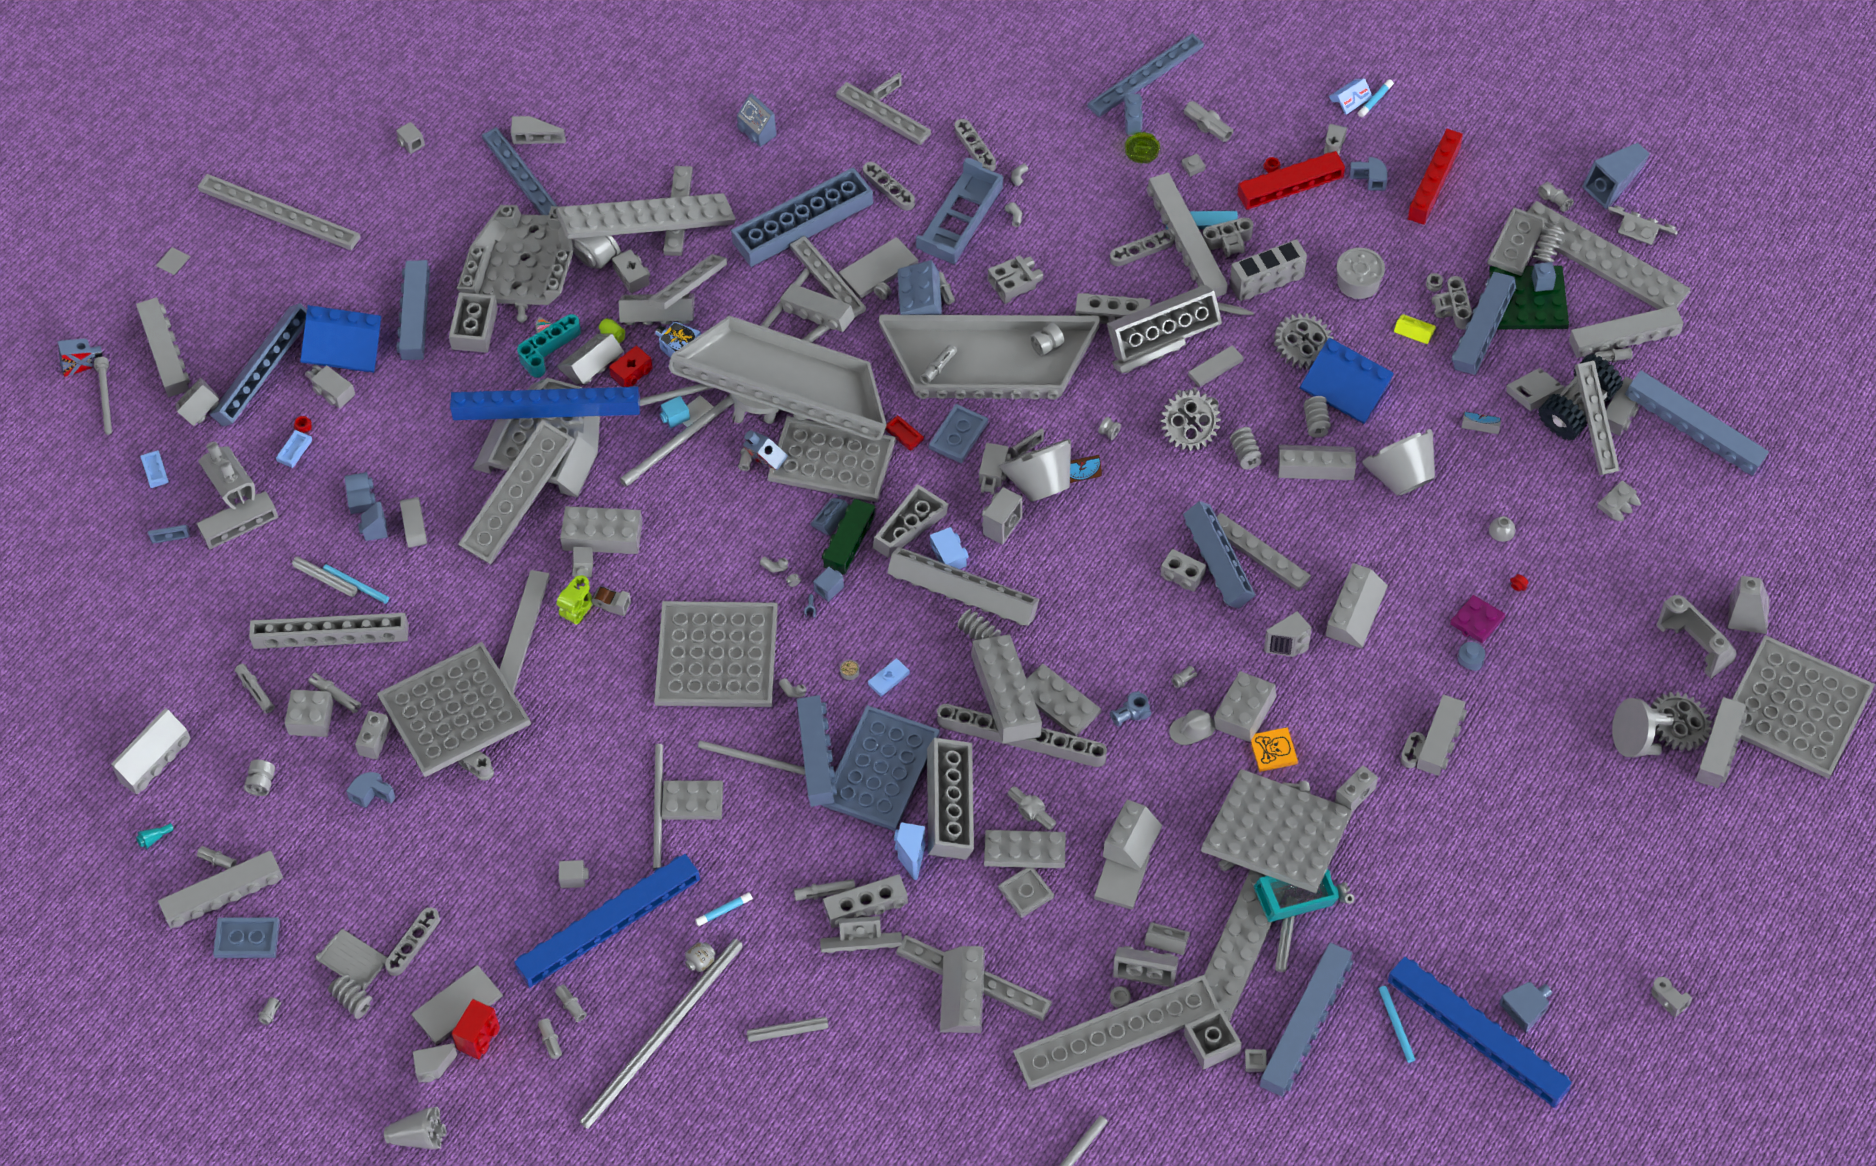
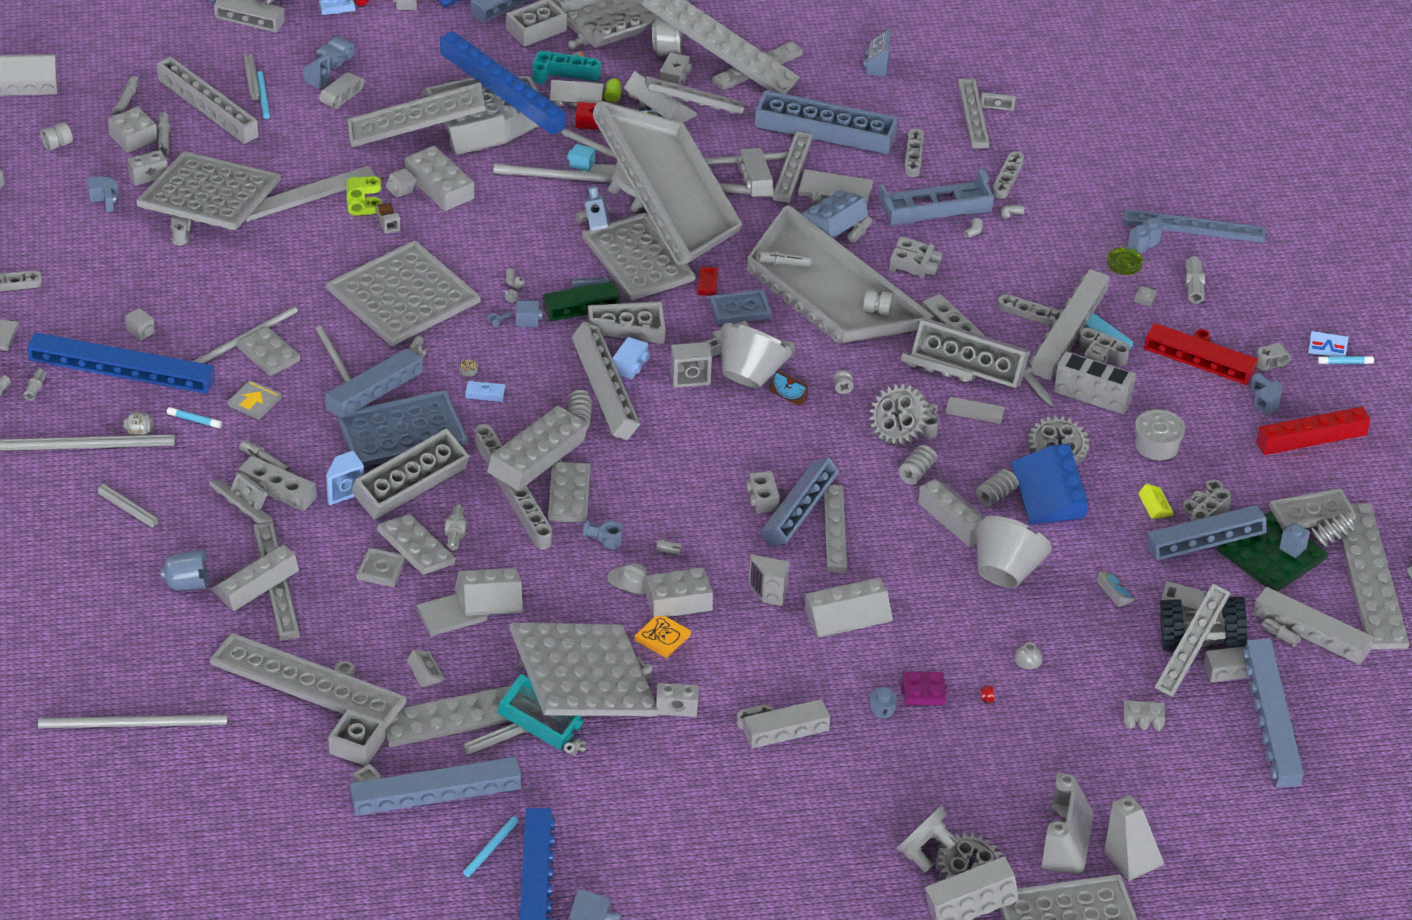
camera: 45 degrees right, 15 degrees down
(743, 850) = (254, 399): none -> light grey tile
(916, 1037) = (186, 571): none -> sand blue cylinder
(1145, 966) = (381, 663): light grey slope -> none
(1549, 192) = (1391, 513): light grey connector -> none

